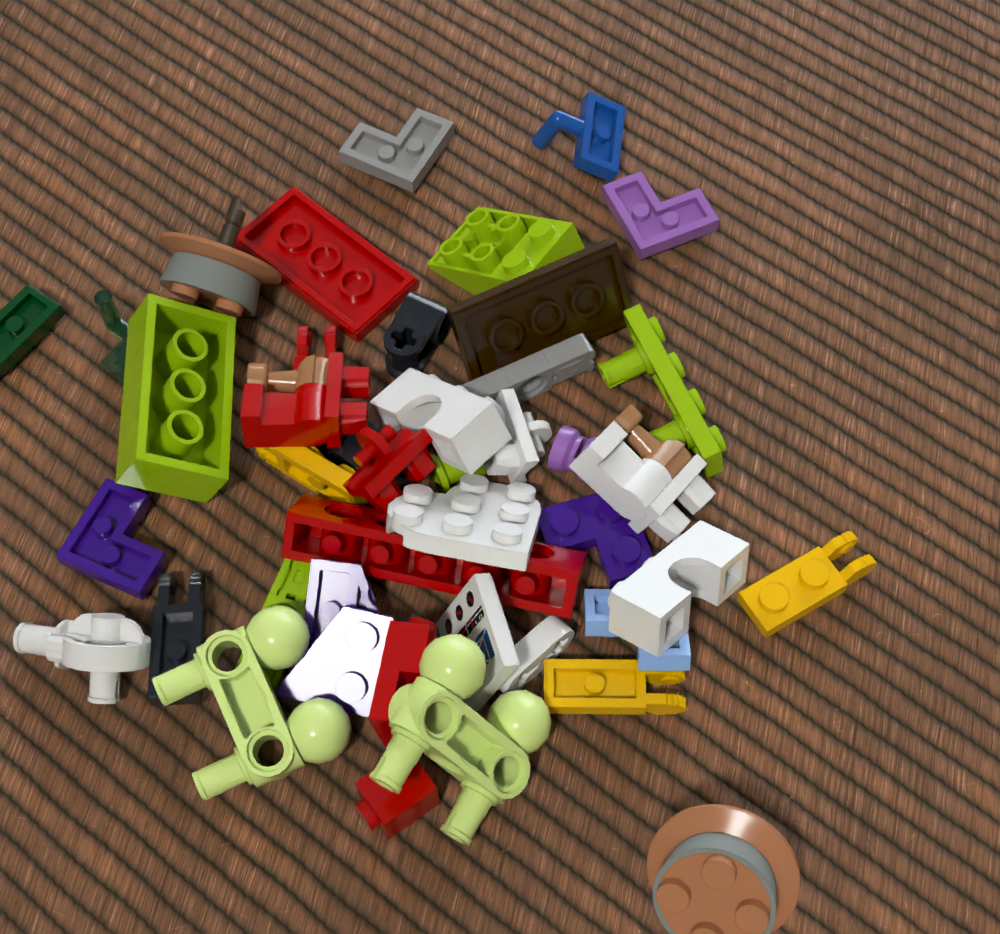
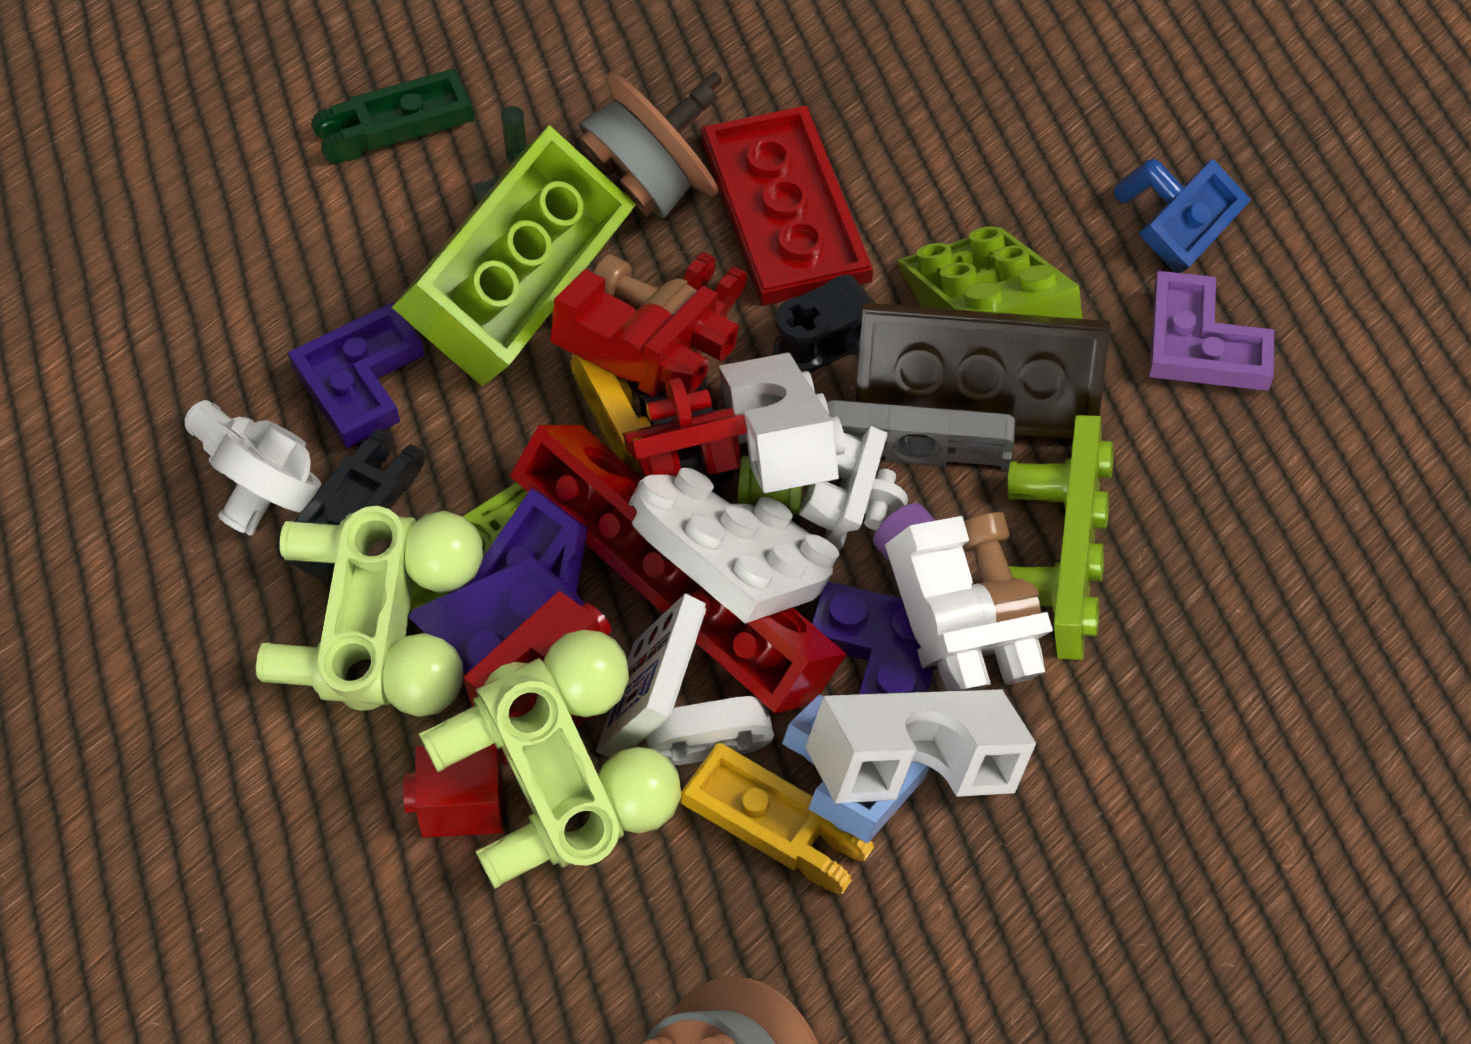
camera: 30 degrees right, 5 degrees down
(402, 158) = (950, 133): light grey plate -> none
(803, 585) = (1087, 836): yellow hinge -> none

